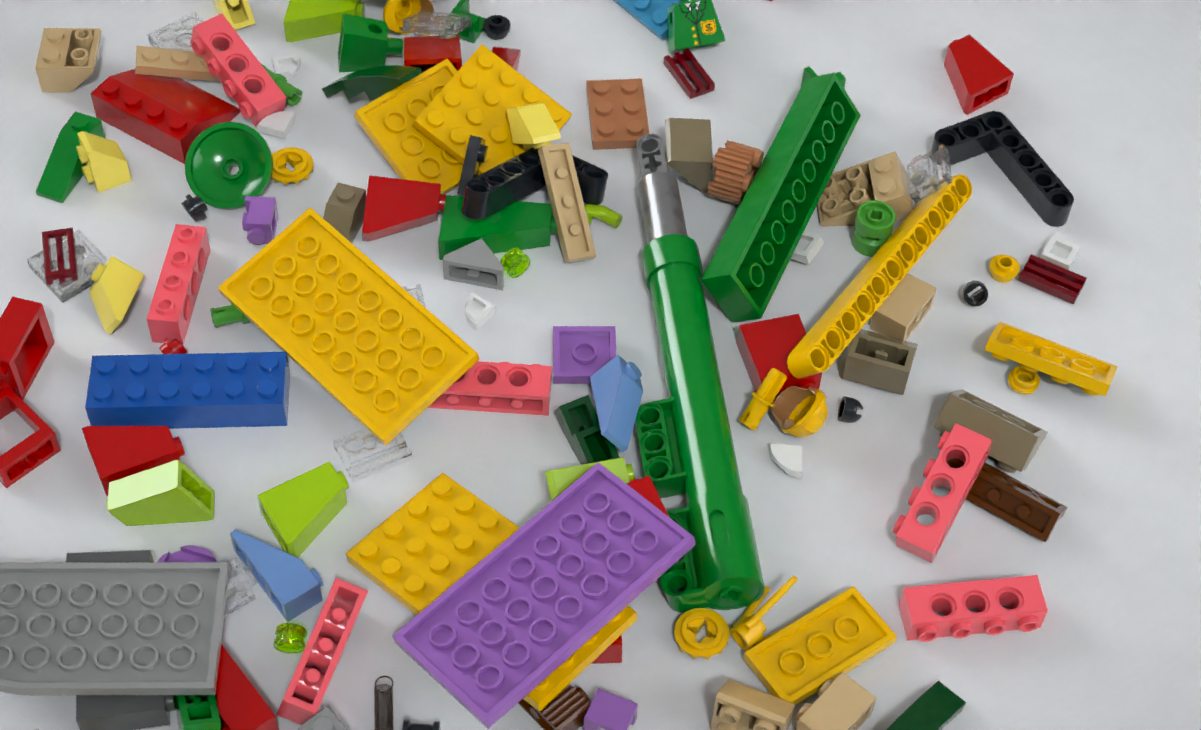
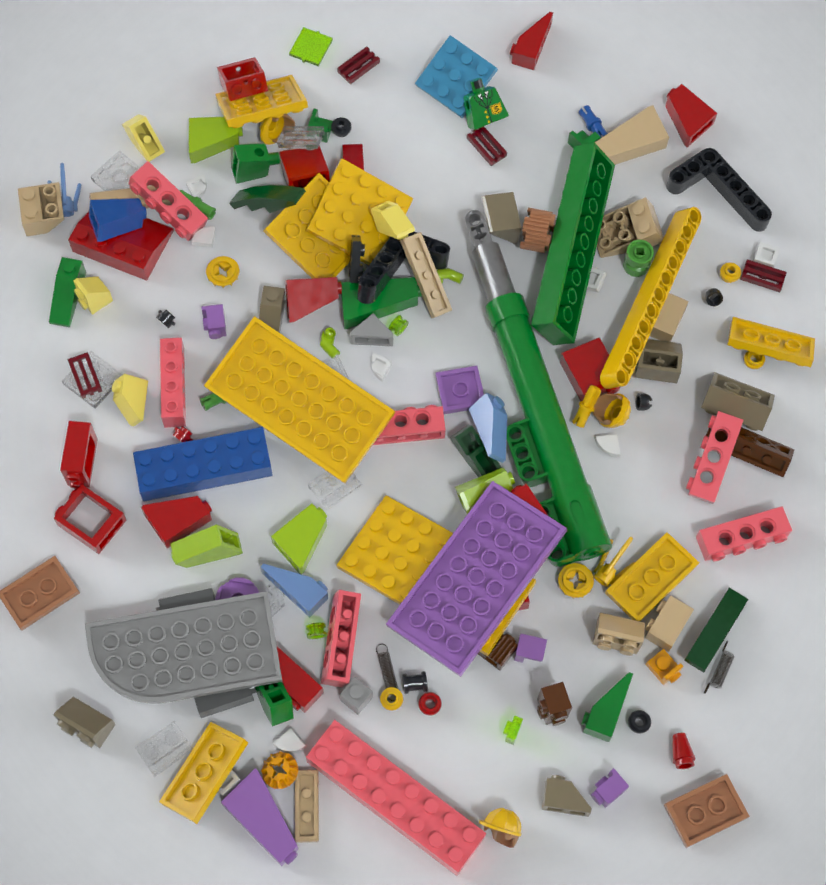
camera: 10 degrees left, 15 degrees up
(105, 59) = (69, 206): none -> medium blue plant
(163, 76) = (115, 217): none -> blue slope
(216, 153) = (167, 283): green dish -> none
(411, 268) = (327, 342): none -> lime arm
(616, 113) = (443, 188): nougat plate -> none
(840, 64) = (593, 123): none -> blue pin
(895, 89) = (635, 137): none -> tan slope
(928, 173) = (670, 207): clear plate -> none

